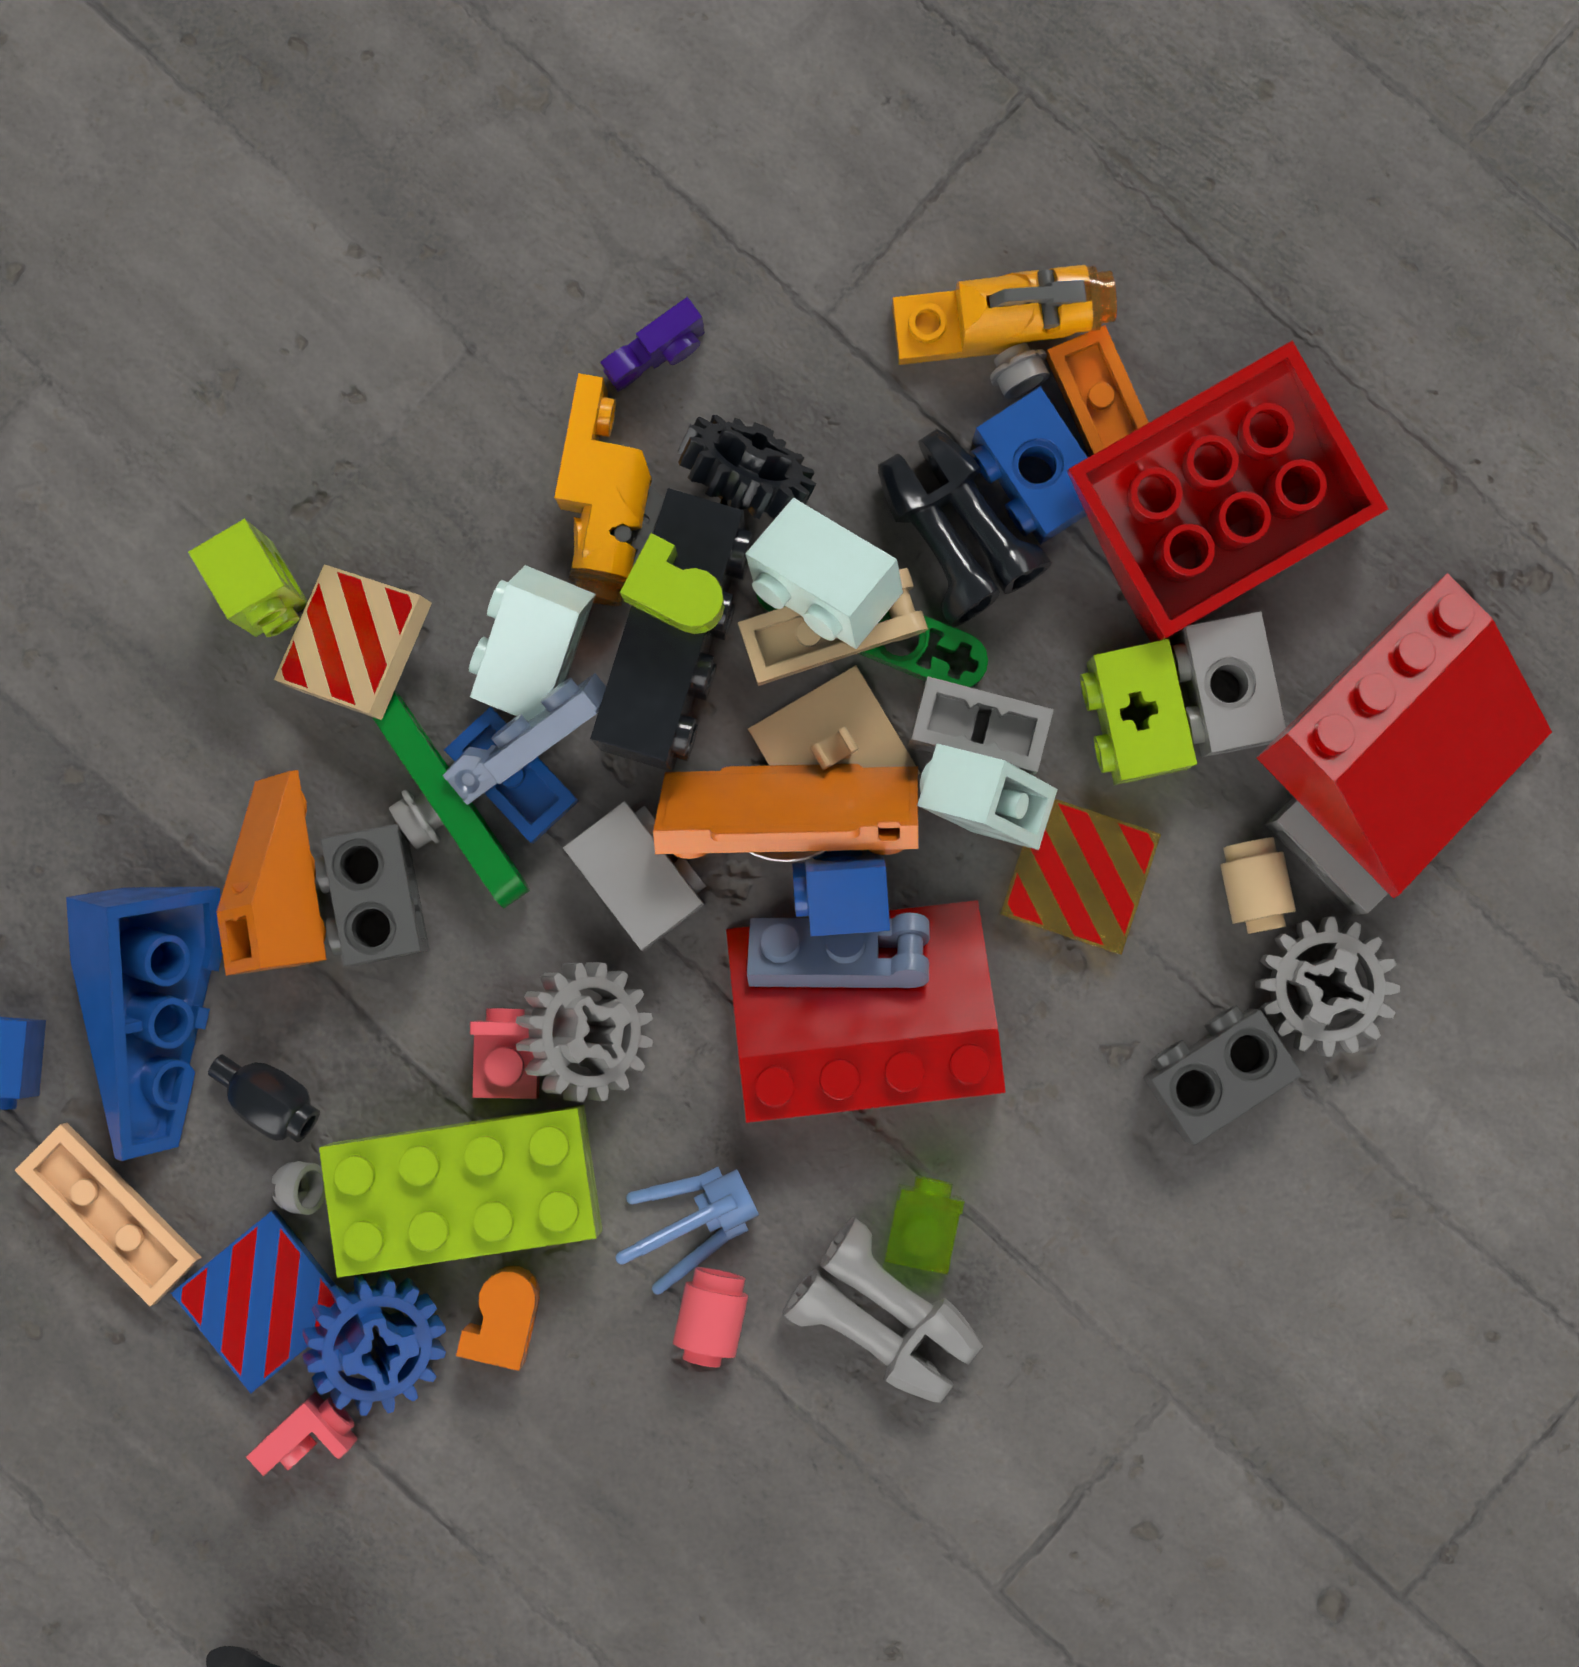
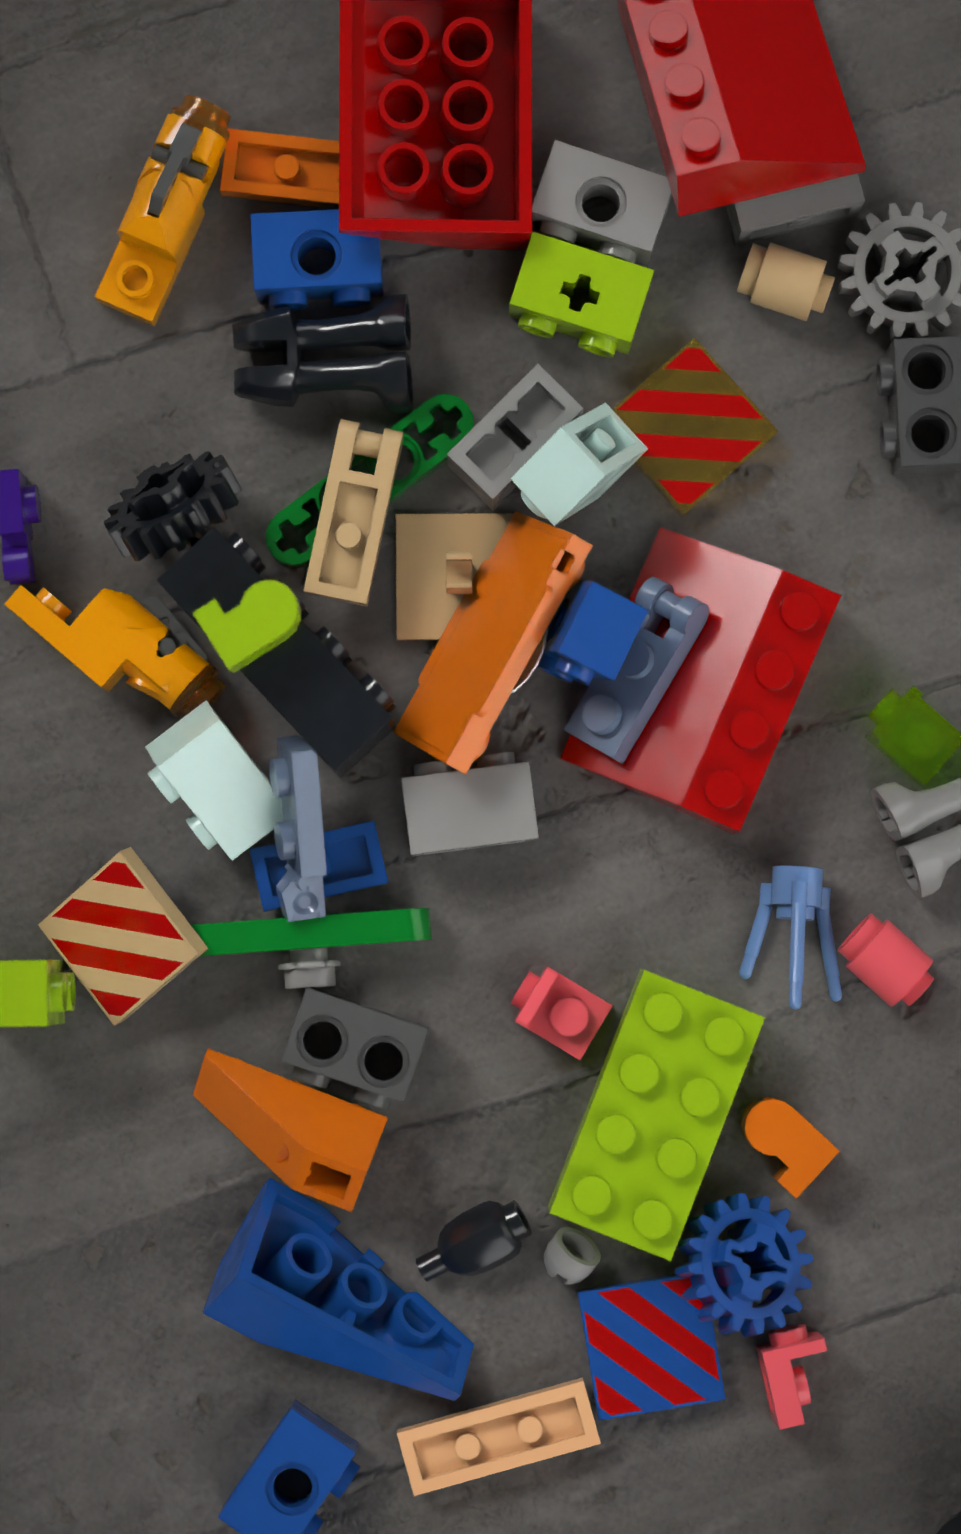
camera: 65 degrees left, 0 degrees up
(584, 1031) = (579, 928): light grey gear -> none
(823, 574) = (307, 491): light aqua brick -> none
(1019, 370) = (222, 225): light grey plate -> none

